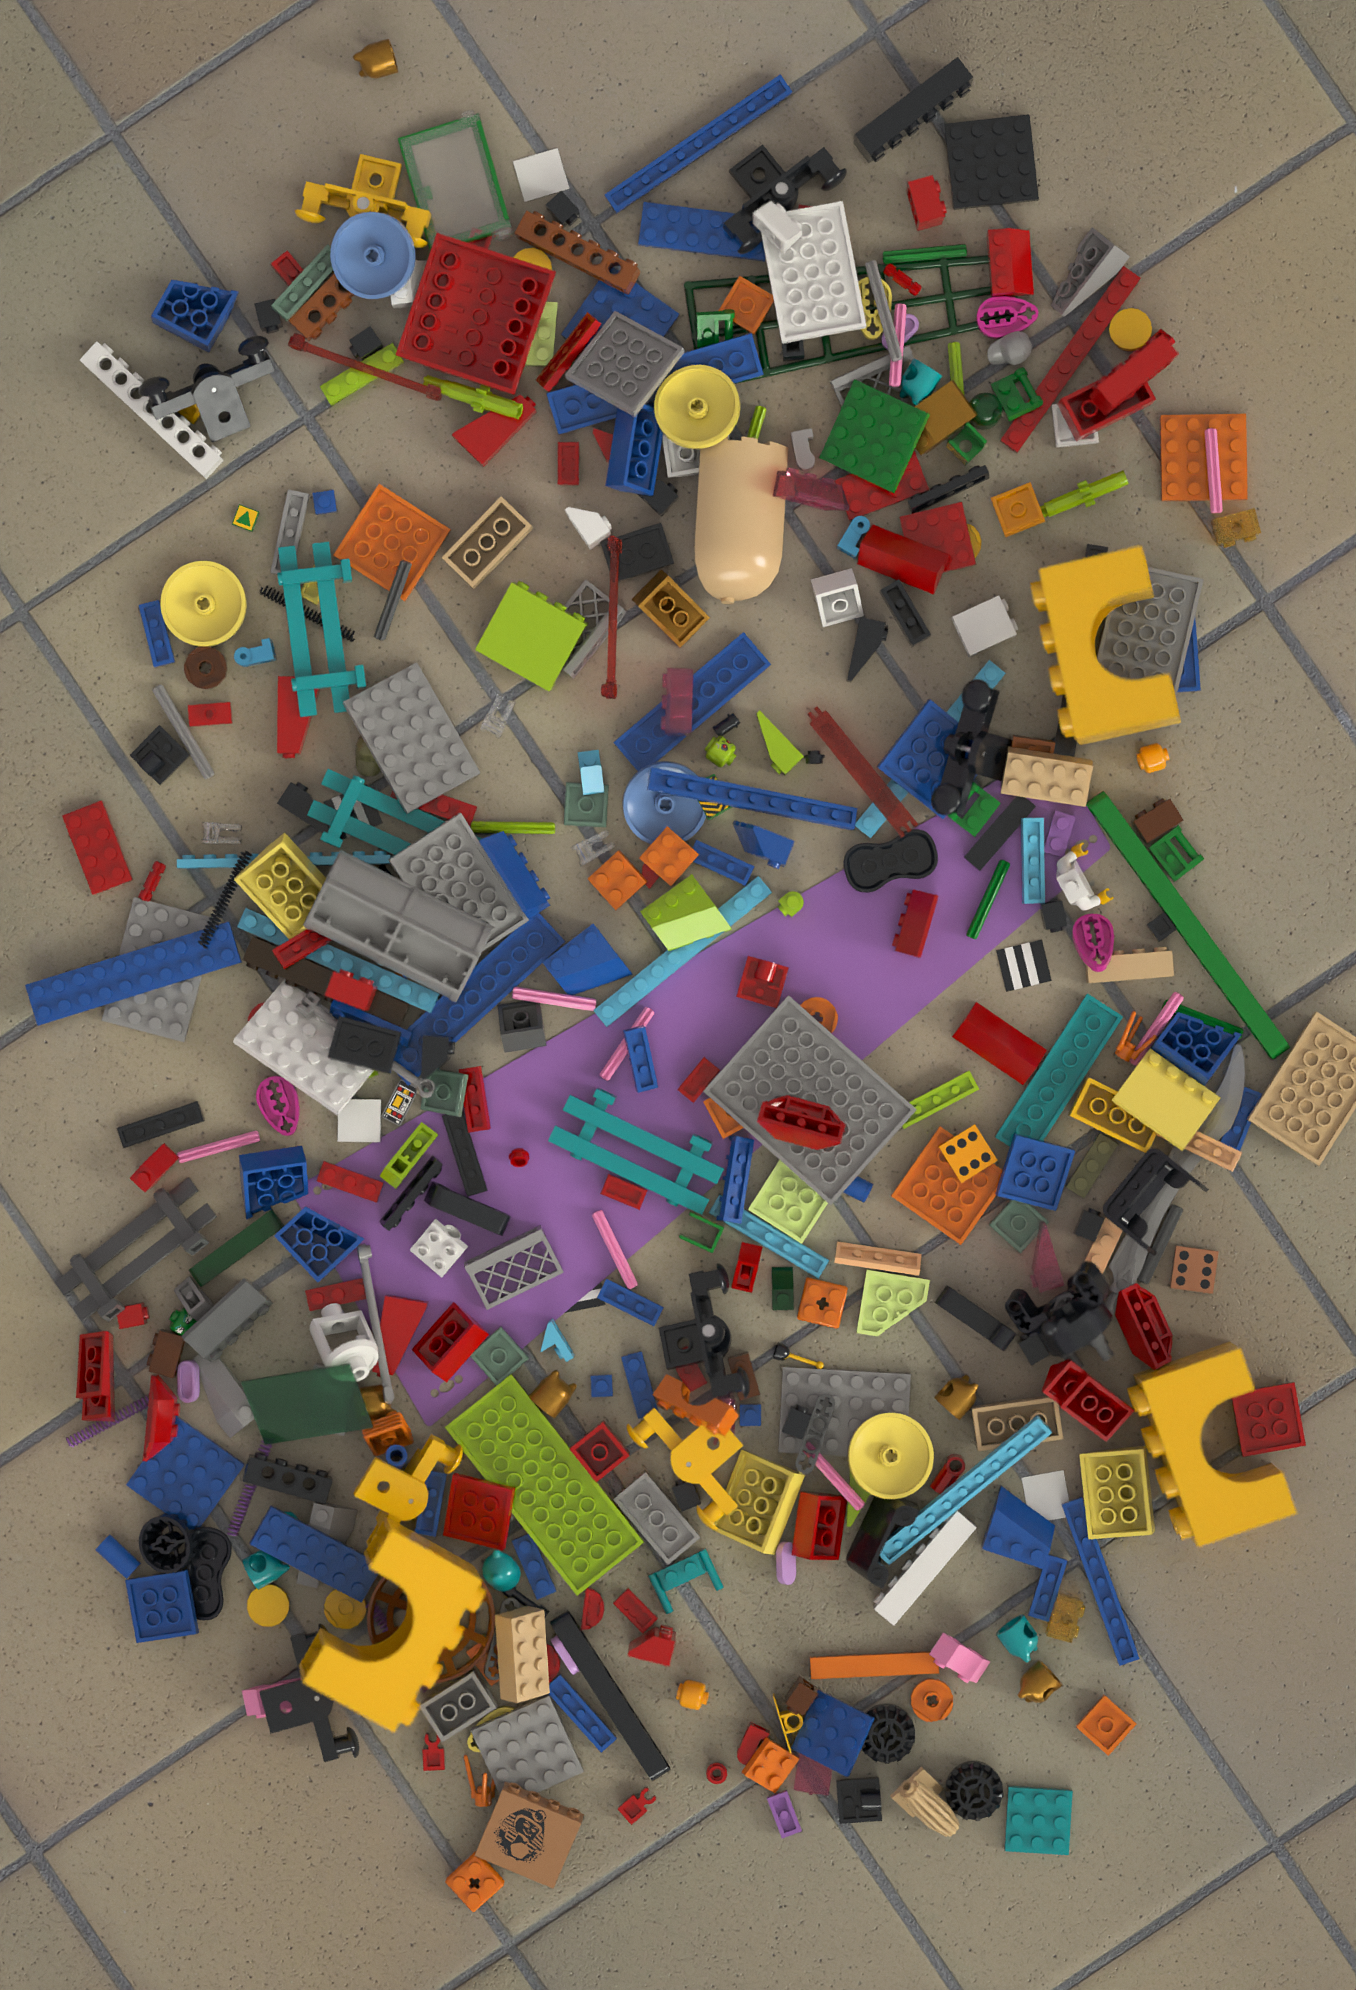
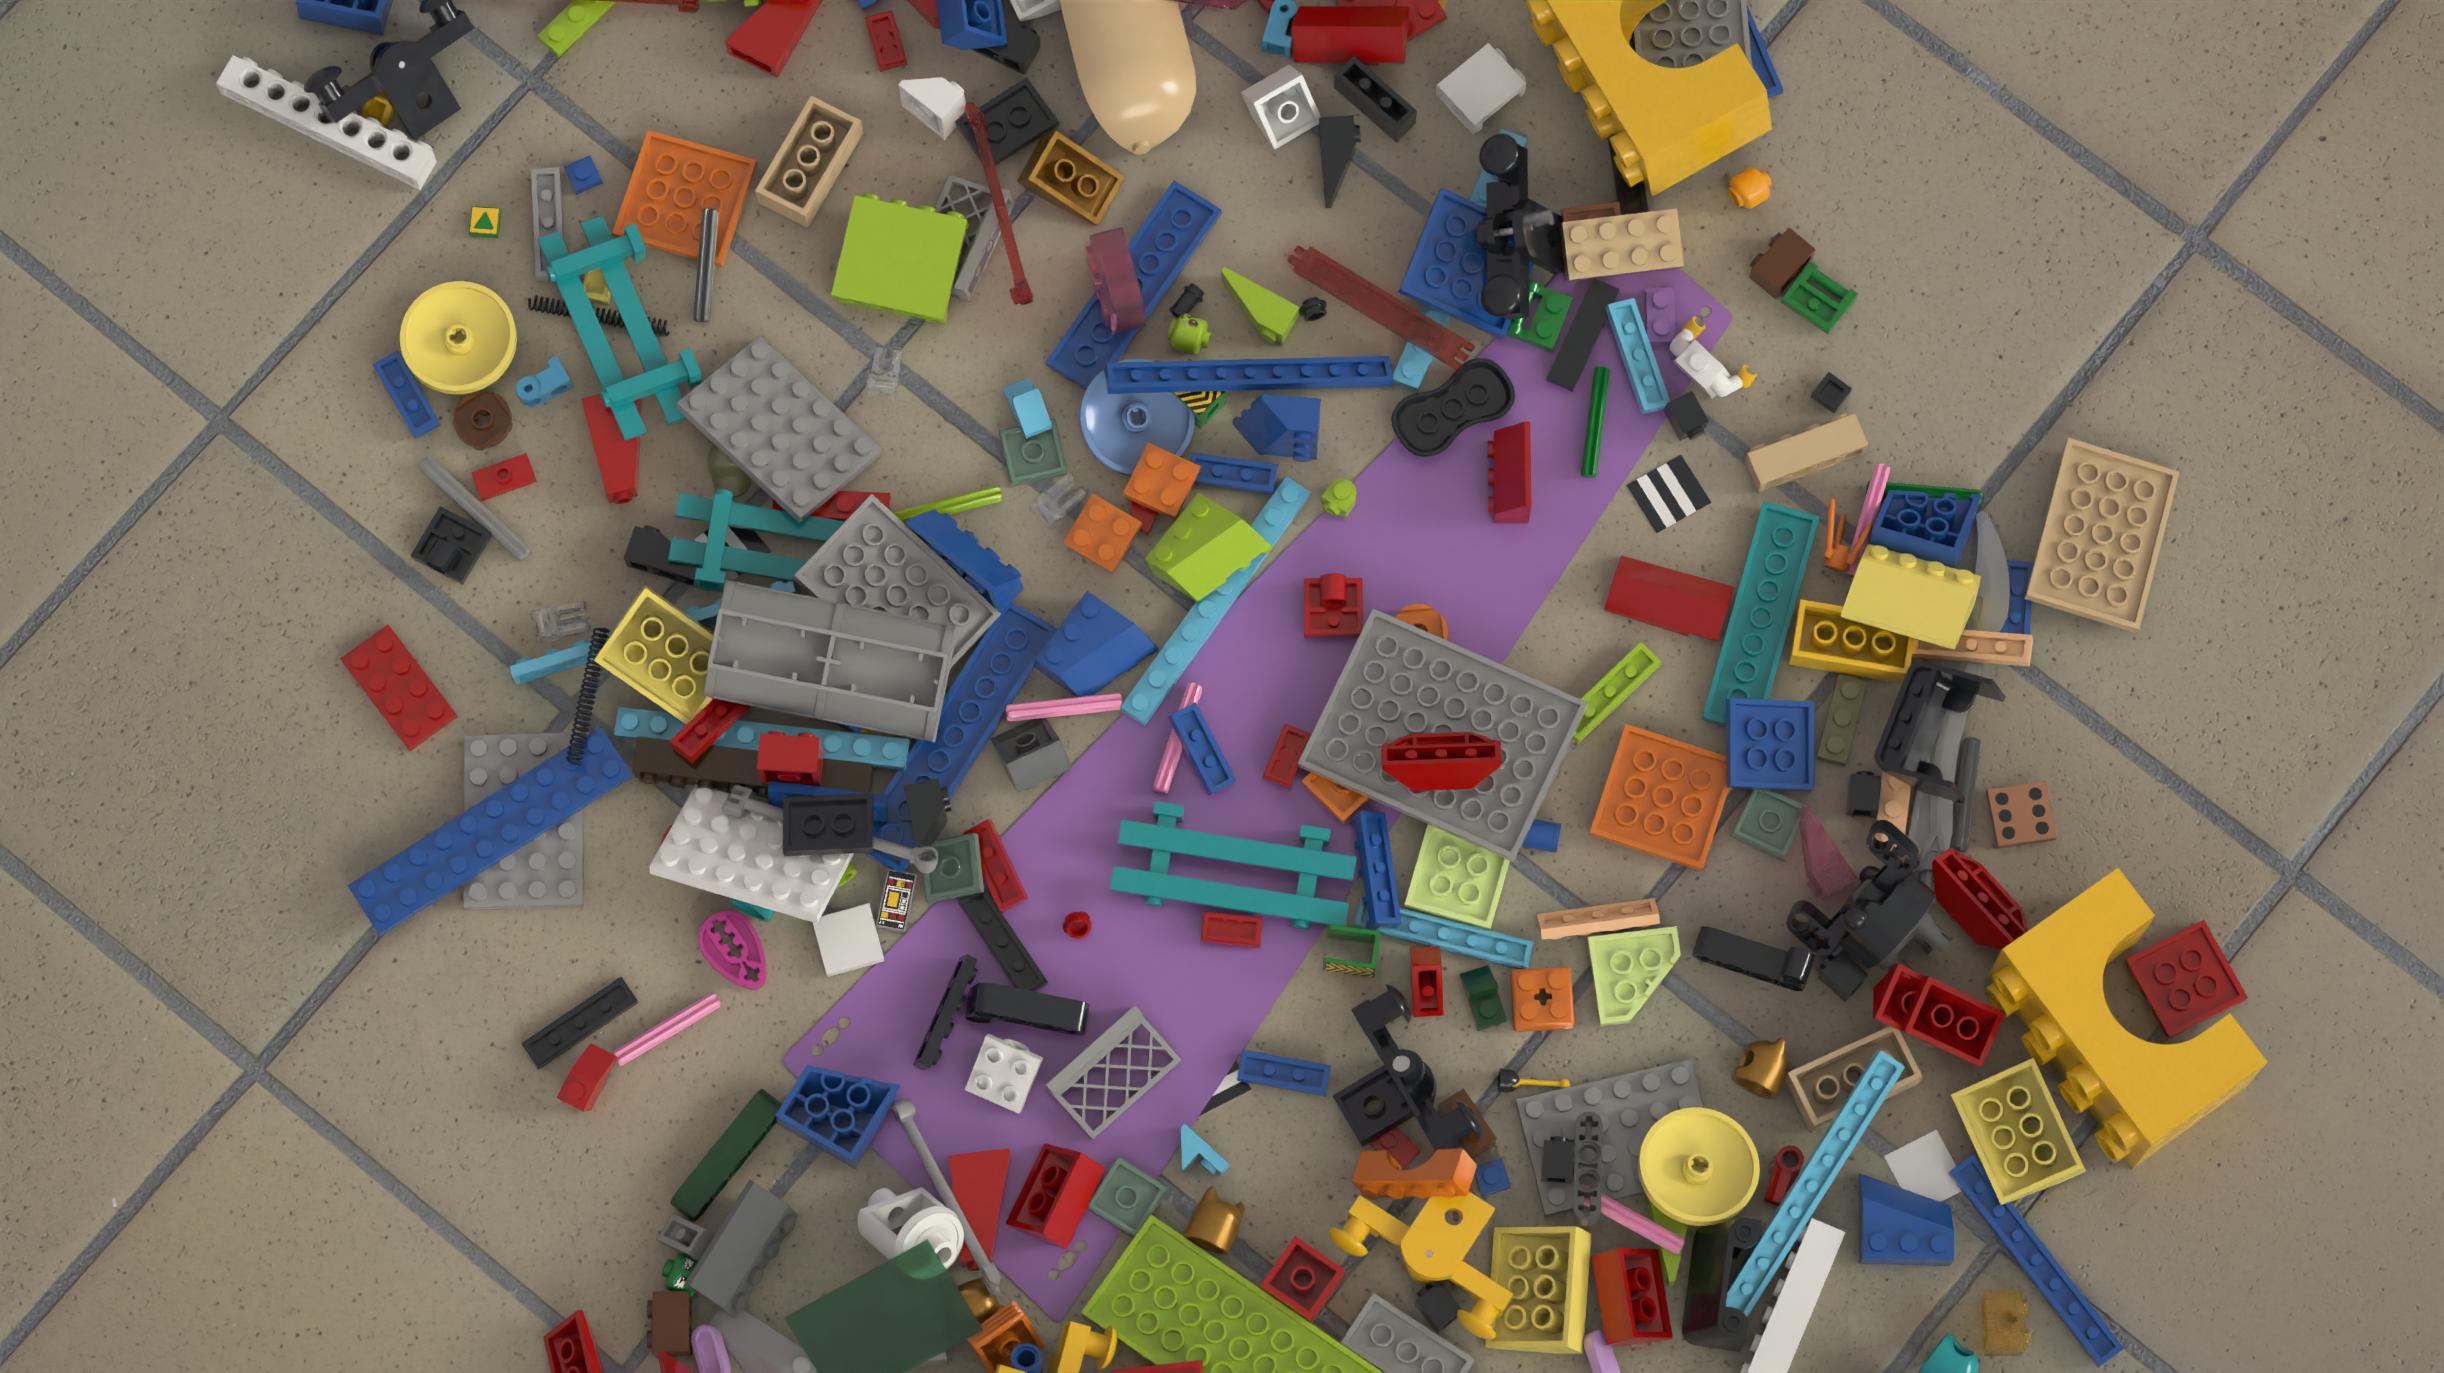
camera: 20 degrees left, 15 degrees down
(133, 1315) = (609, 1286): red brick -> none
(152, 881) = (484, 708): red axle -> none
(183, 1234) = (567, 1267): dark grey fence -> none
(272, 1178) = (751, 1047): blue wedge -> none
(336, 1293) = (888, 1174): red plate -> none
(350, 1181) = (858, 1023): red plate -> none
(408, 1155) = (927, 965): lime slope -> none
(601, 1385) = (1278, 1197): blue plate -> none
(614, 1249) = (1242, 1009): bright pink axle -> none
(639, 1383) = (1327, 1177): blue plate -> none
(968, 1153) = (1673, 746): light orange tile -> none
(1047, 1588) = (1967, 1290): blue plate -> none
(1083, 940) = (1744, 442): dark pink piece -> none
(1187, 925) = (1866, 381): green beam -> none

